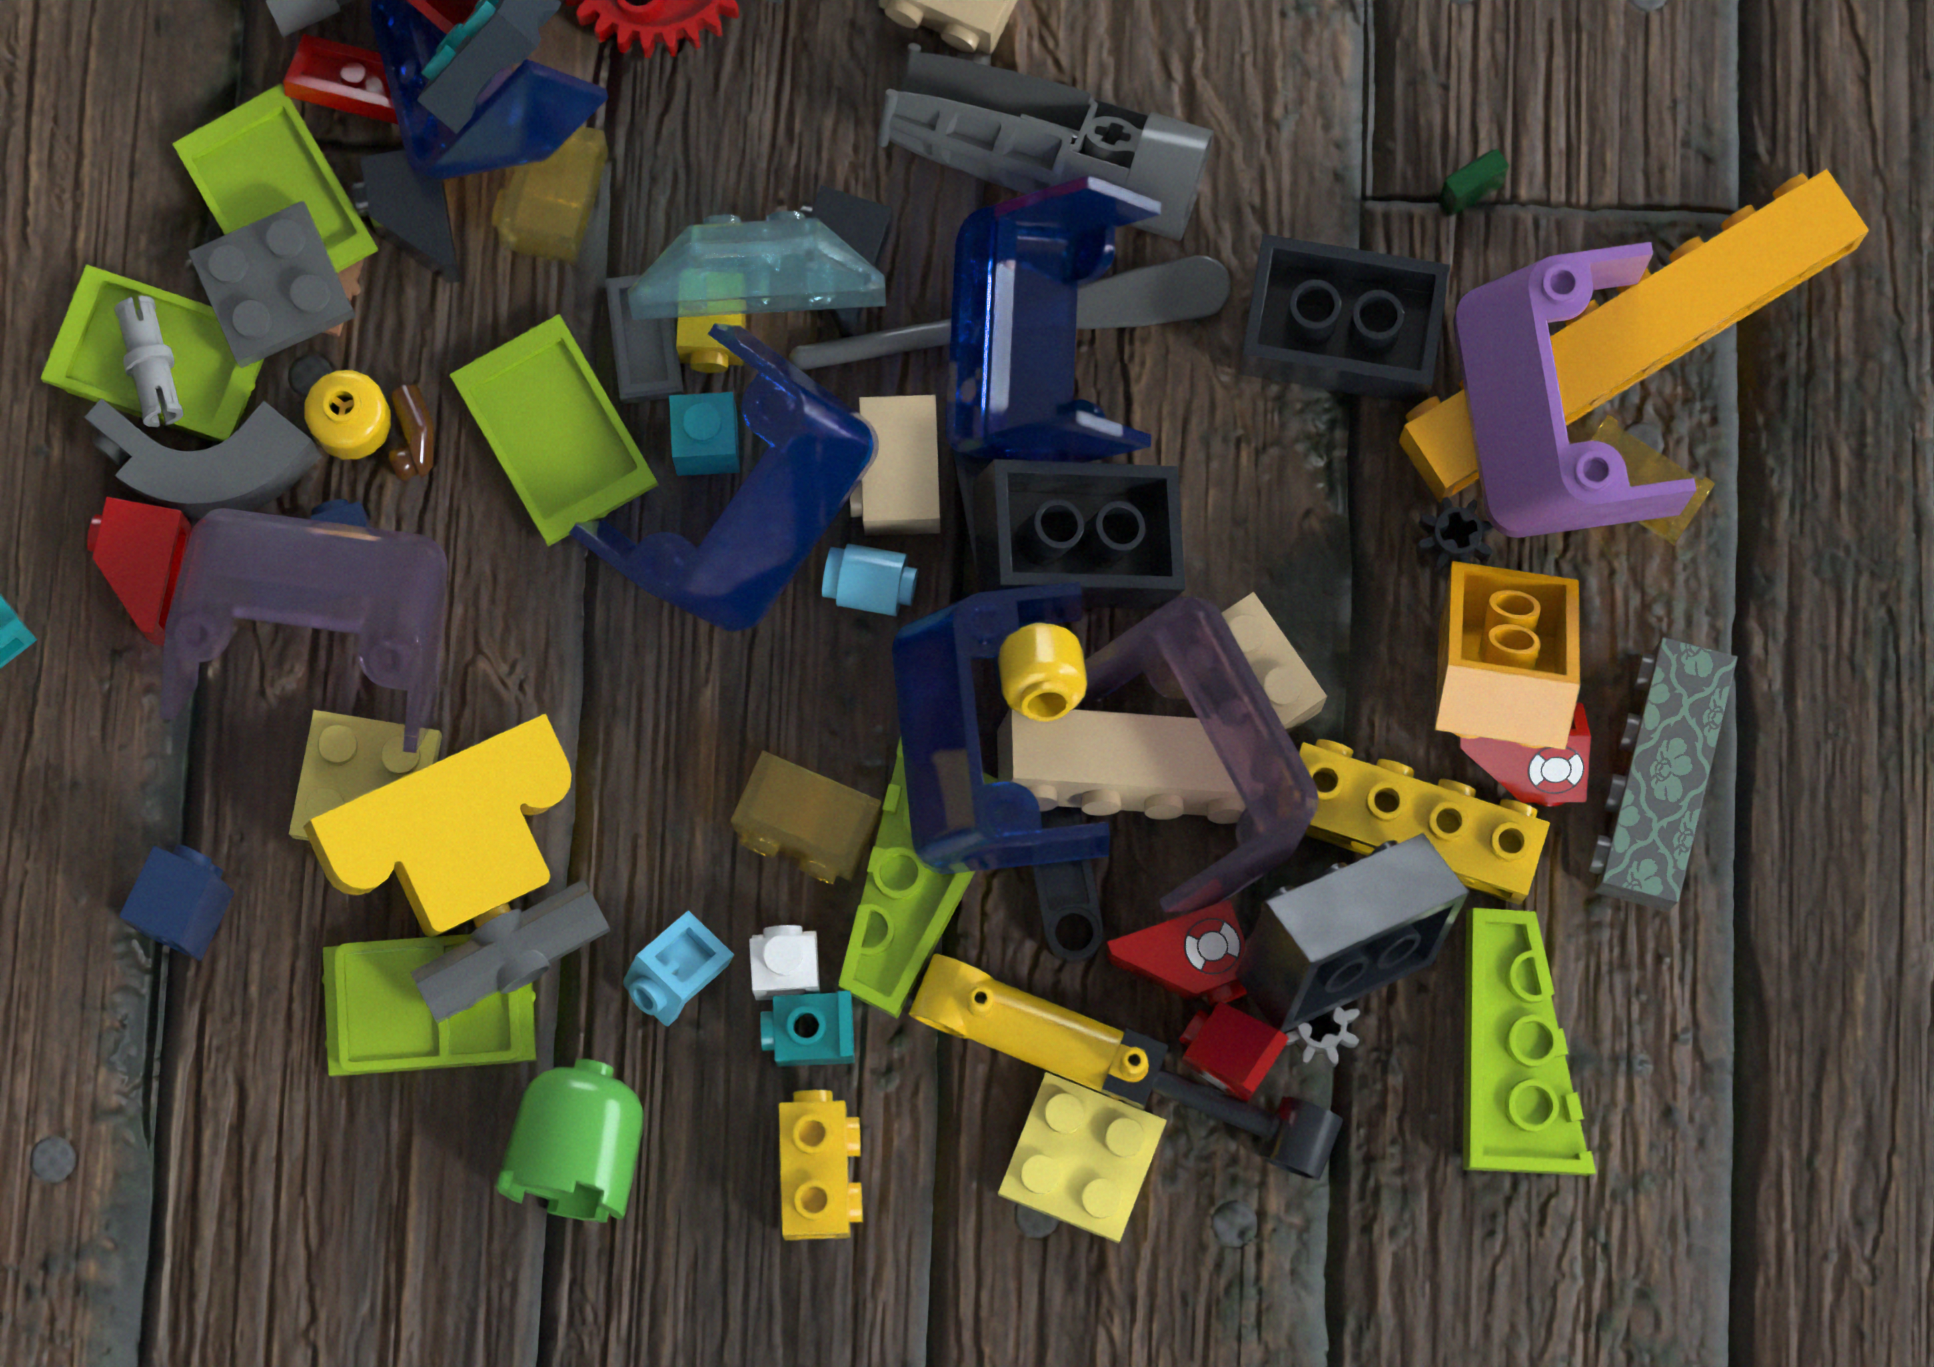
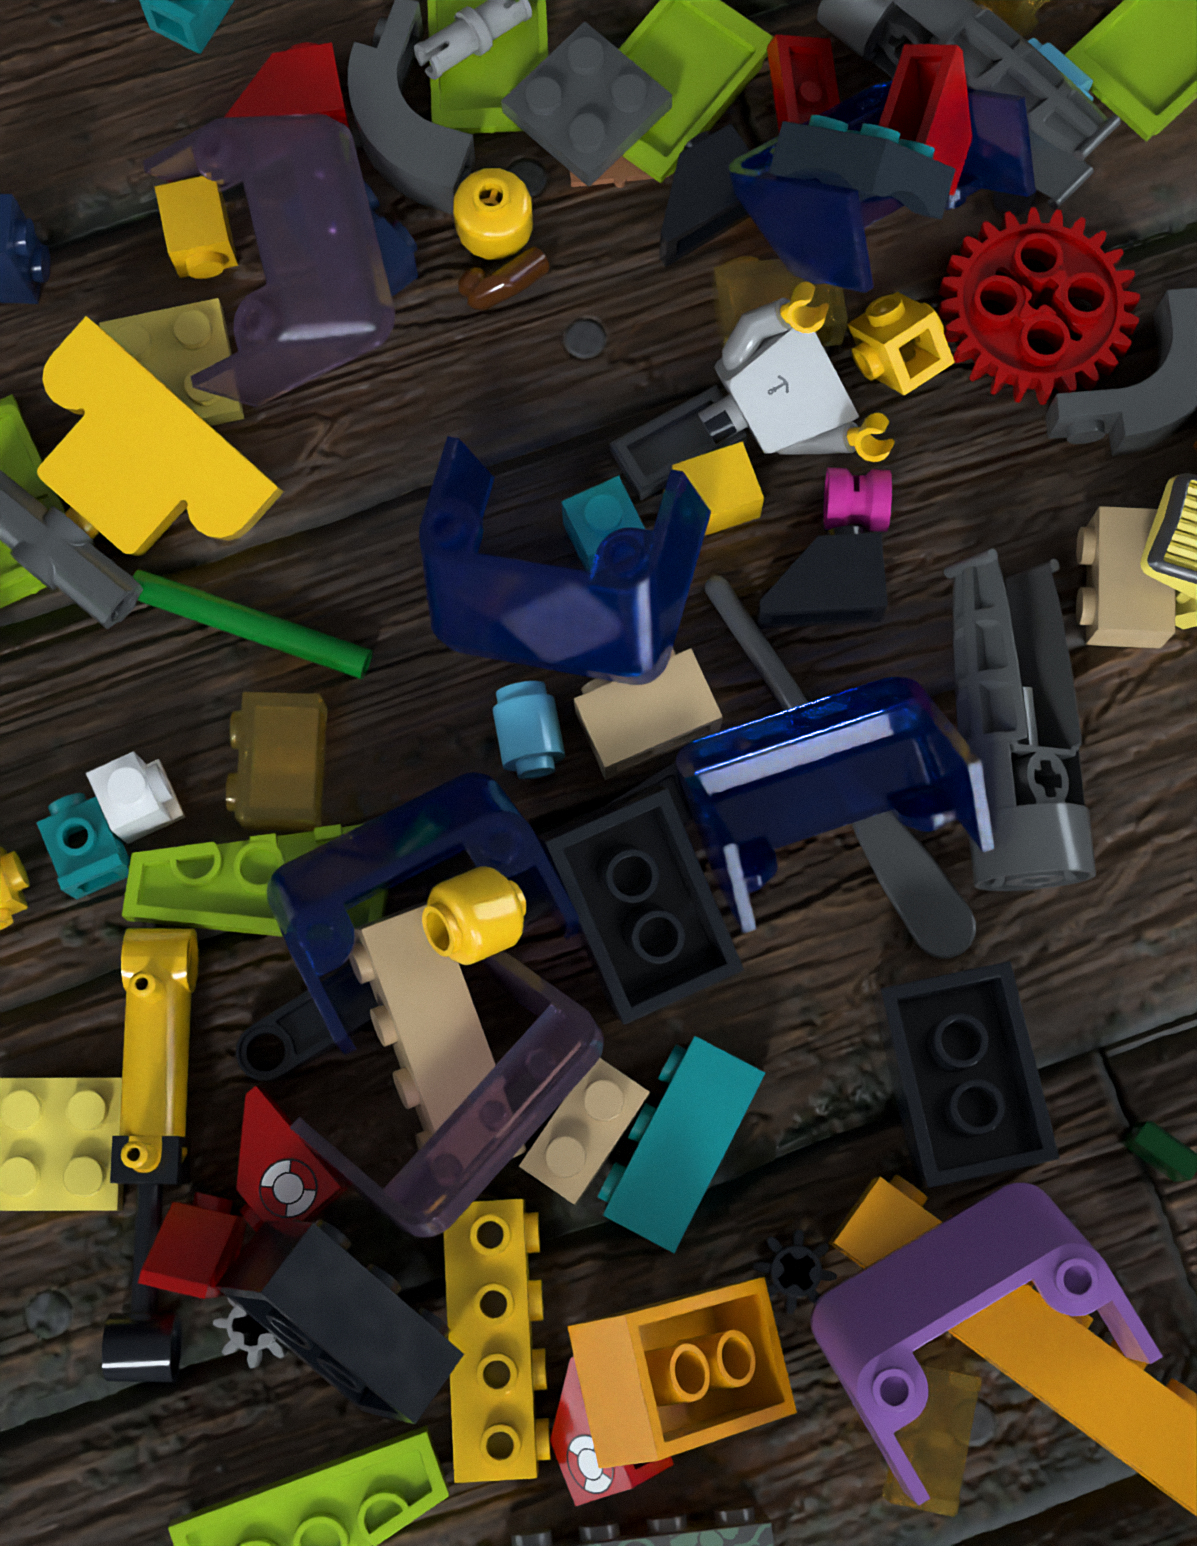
camera: 70 degrees right, 0 degrees up
(234, 702) = (196, 227): none -> yellow brick
(553, 429) = (558, 398): lime piece -> none
(639, 207) = (788, 387): none -> torso
(645, 94) = (900, 342): none -> yellow brick
(659, 796) = (253, 624): none -> green piece
(675, 968) = (99, 702): medium azure bracket -> none
(755, 269) = (767, 498): clear light blue wedge -> none
(776, 188) = (857, 499): none -> dark pink wheel
(1305, 589) = (680, 1142): none -> teal brick

